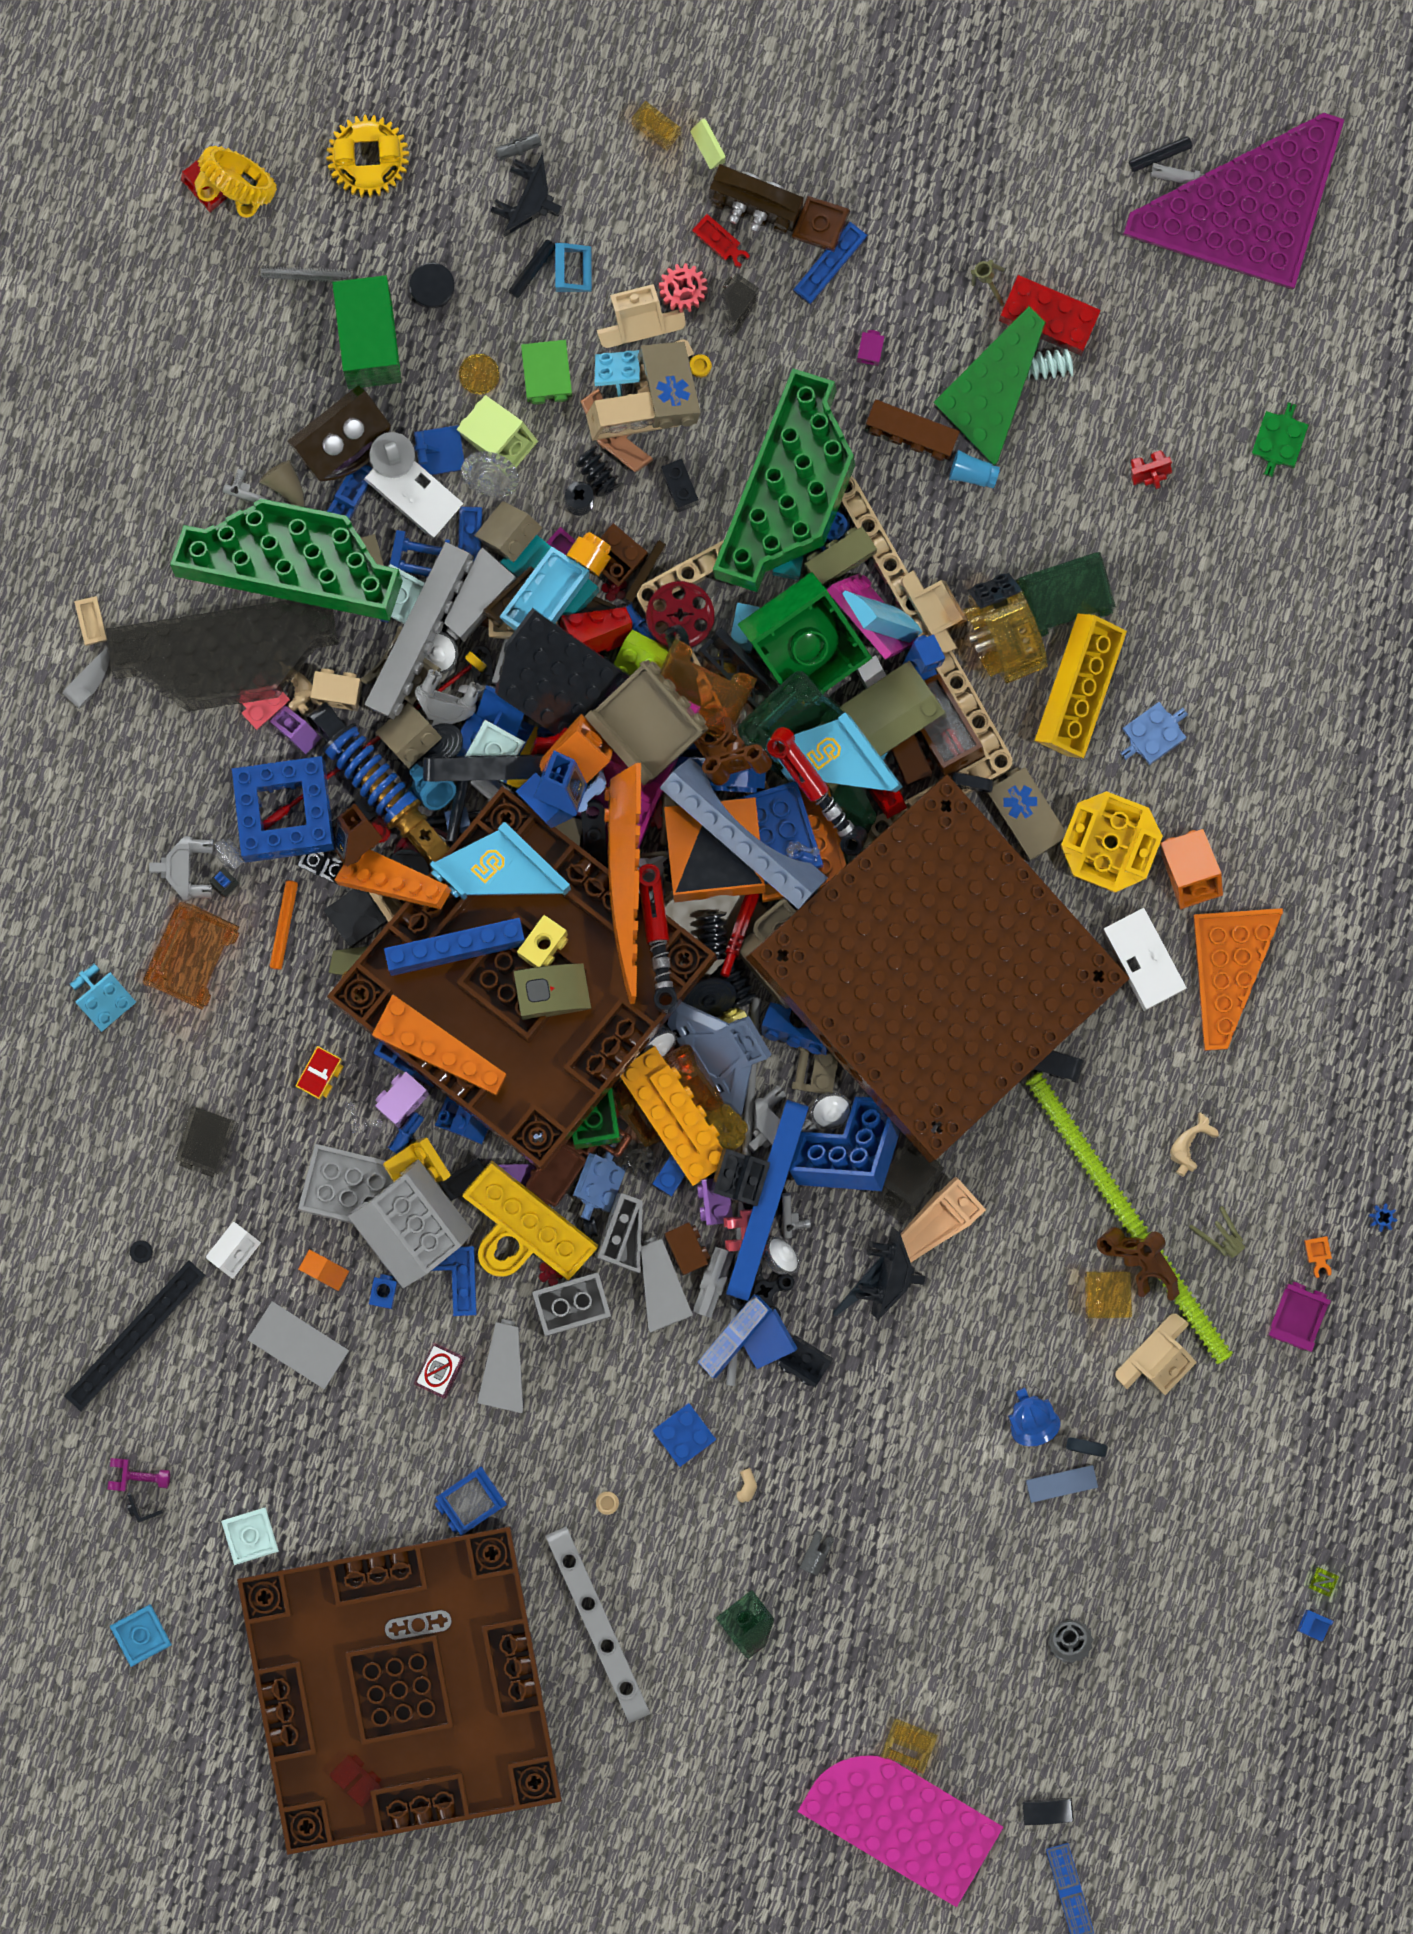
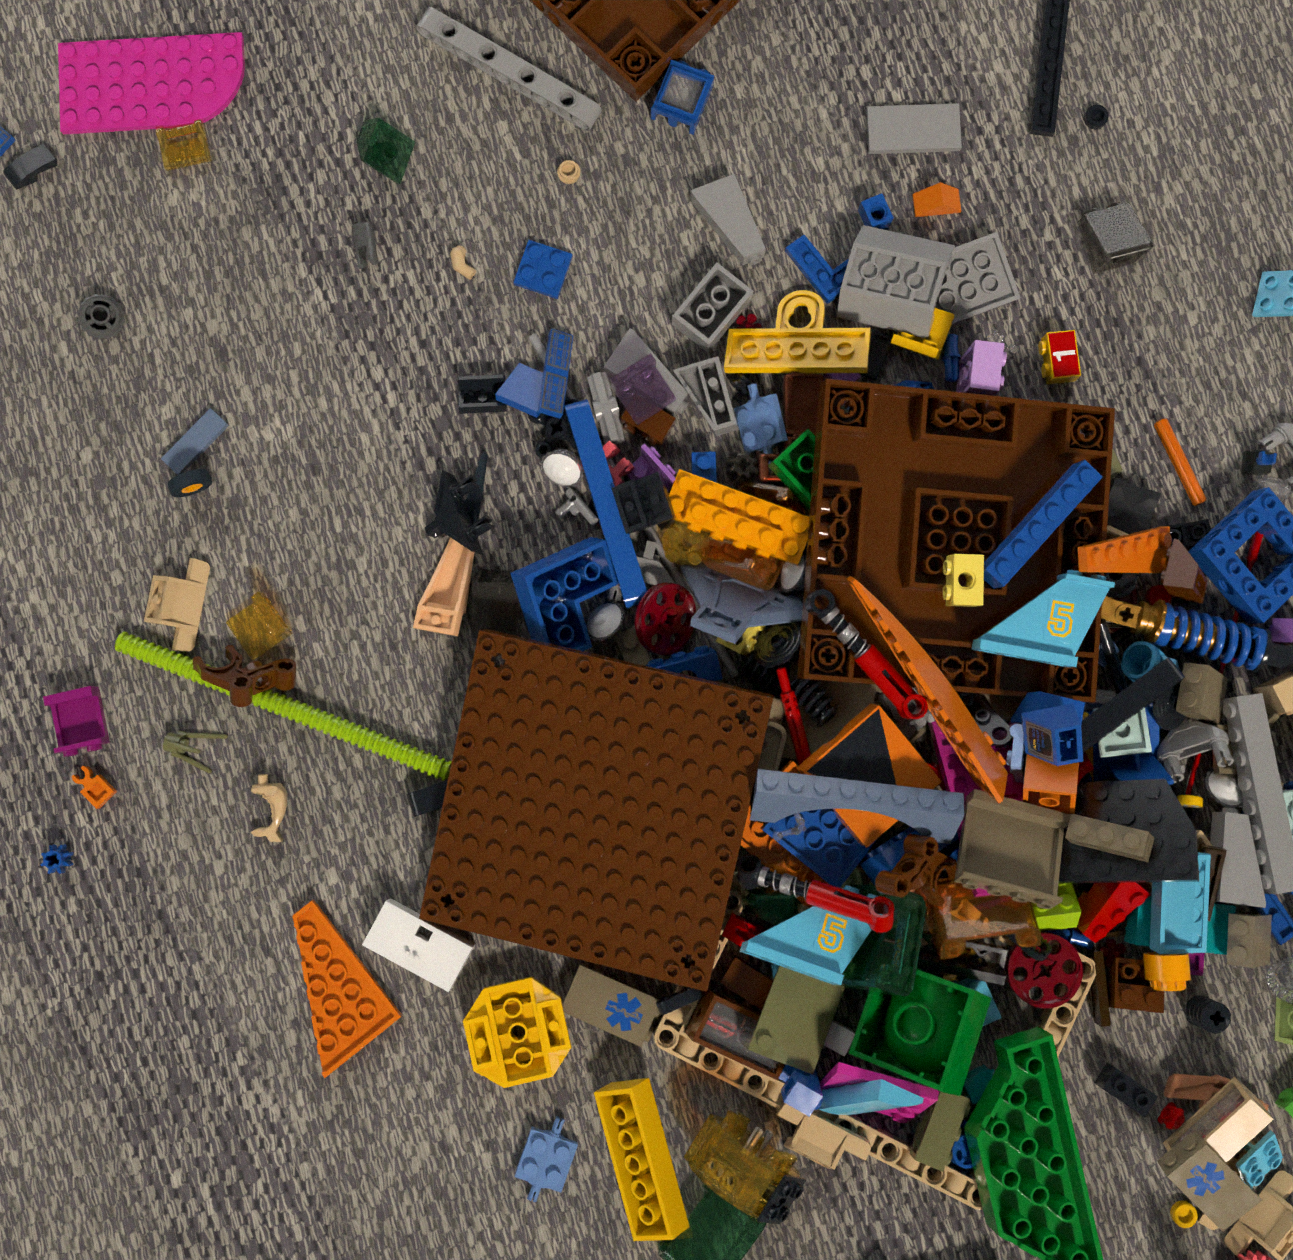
camera: 150 degrees right, 0 degrees up
(189, 954) = (1239, 379): clear orange windscreen -> none
(233, 1250) = (1023, 166): white panel -> none
(423, 1039) = (1006, 424): orange wing -> none
(439, 1370) = (783, 181): piece -> none
(552, 990) = (927, 542): olive slope -> none
(571, 681) = (1109, 837): none -> dark tan brick
(597, 473) = (1205, 1049): black piece -> none
(658, 442) = (1171, 1116): none -> red plate
(676, 1269) = (642, 389): none -> clear purple bracket
(783, 1078) = (658, 617): none -> dark red wedge
(1033, 1420) = (252, 476): blue helmet -> none
(1192, 868) = (429, 1058): orange slope -> none

